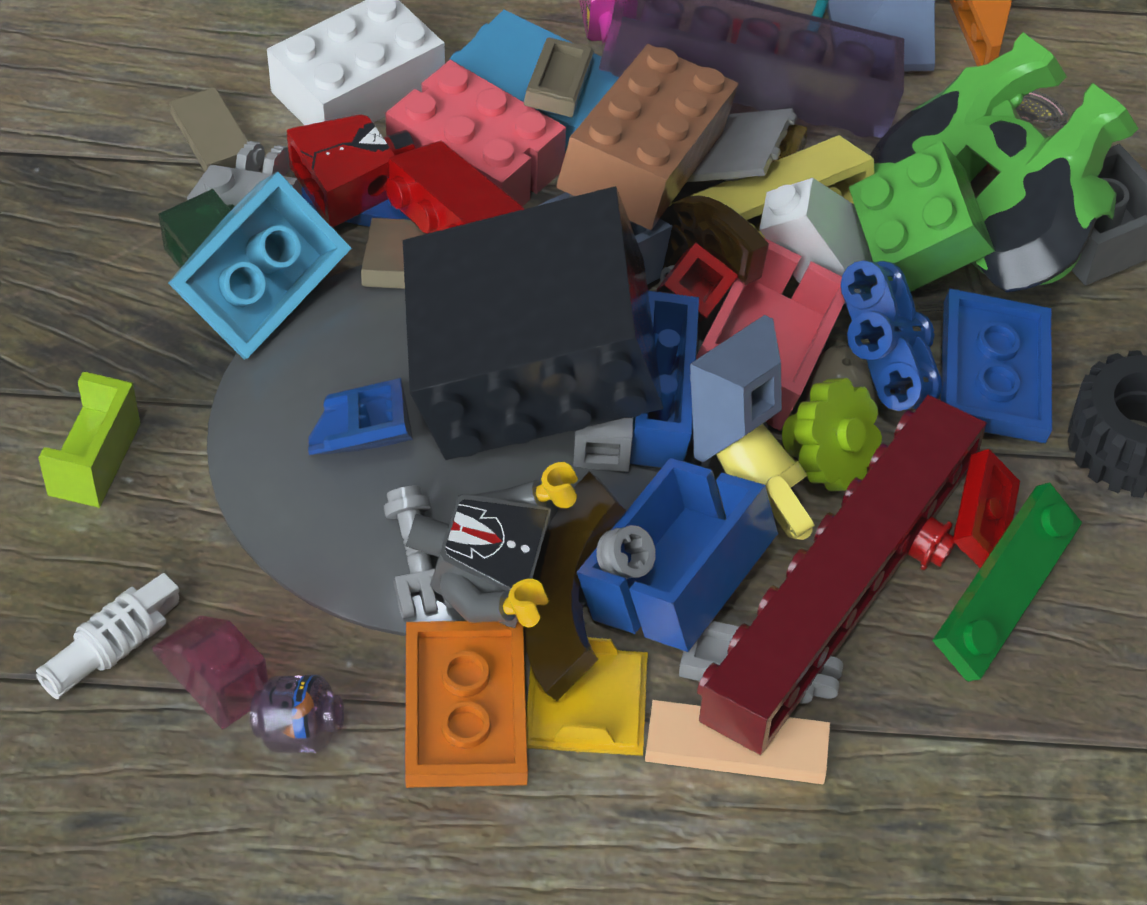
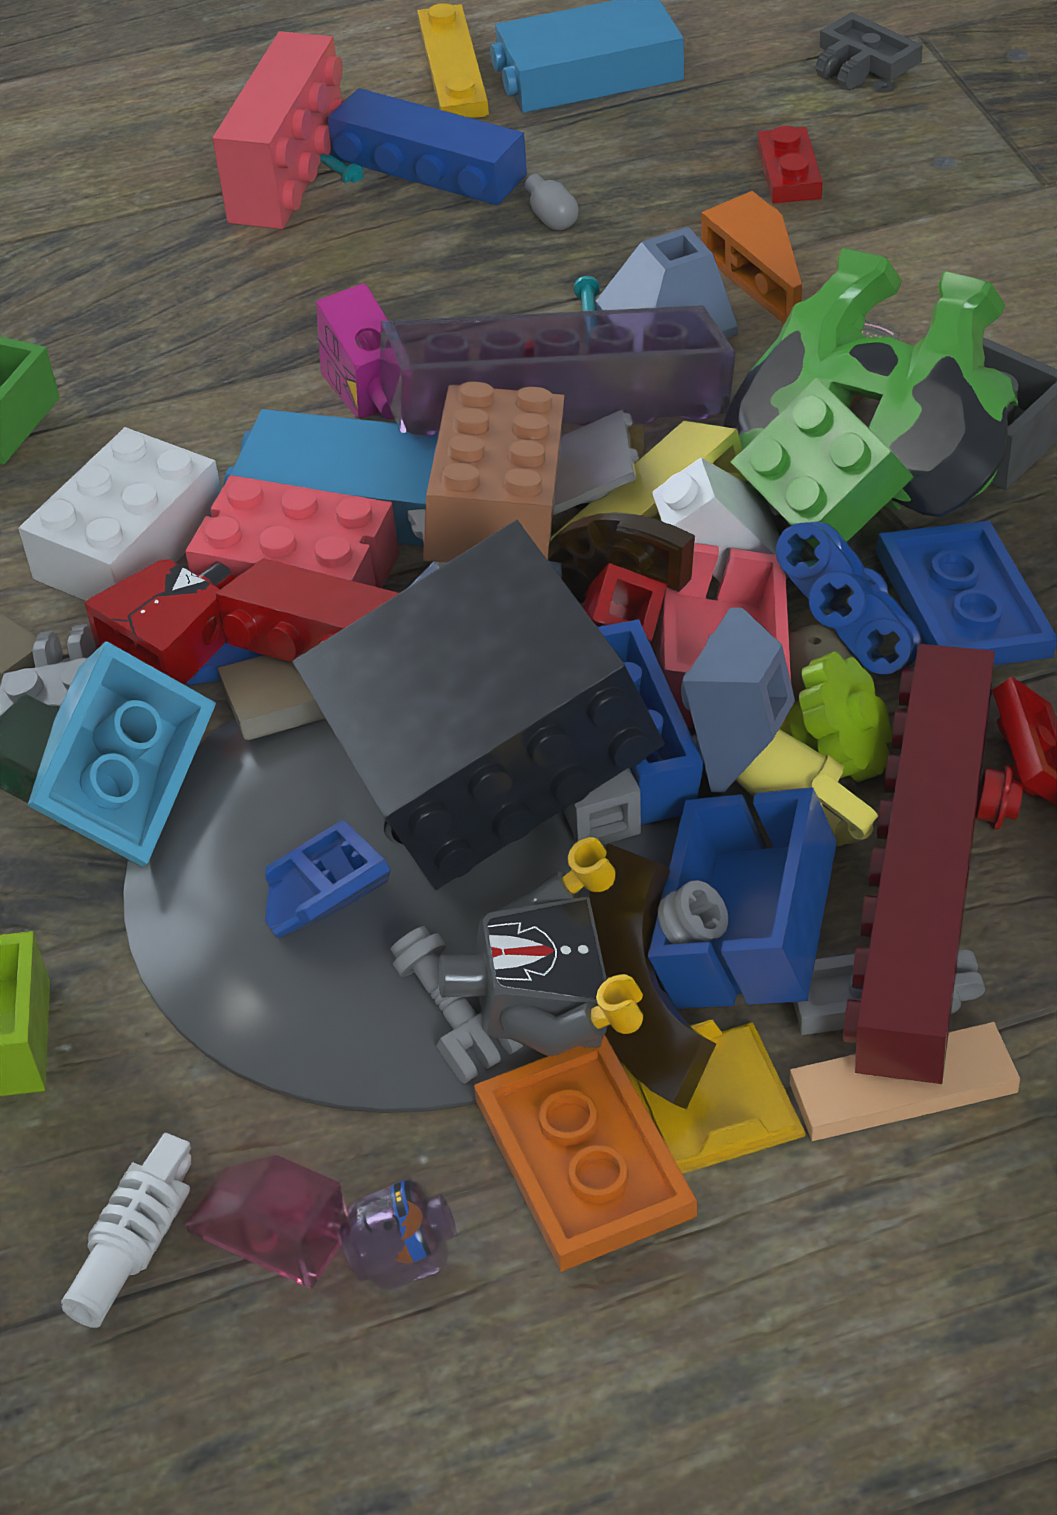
camera: 15 degrees left, 5 degrees down
(559, 77) = (361, 453): dark tan tile -> none

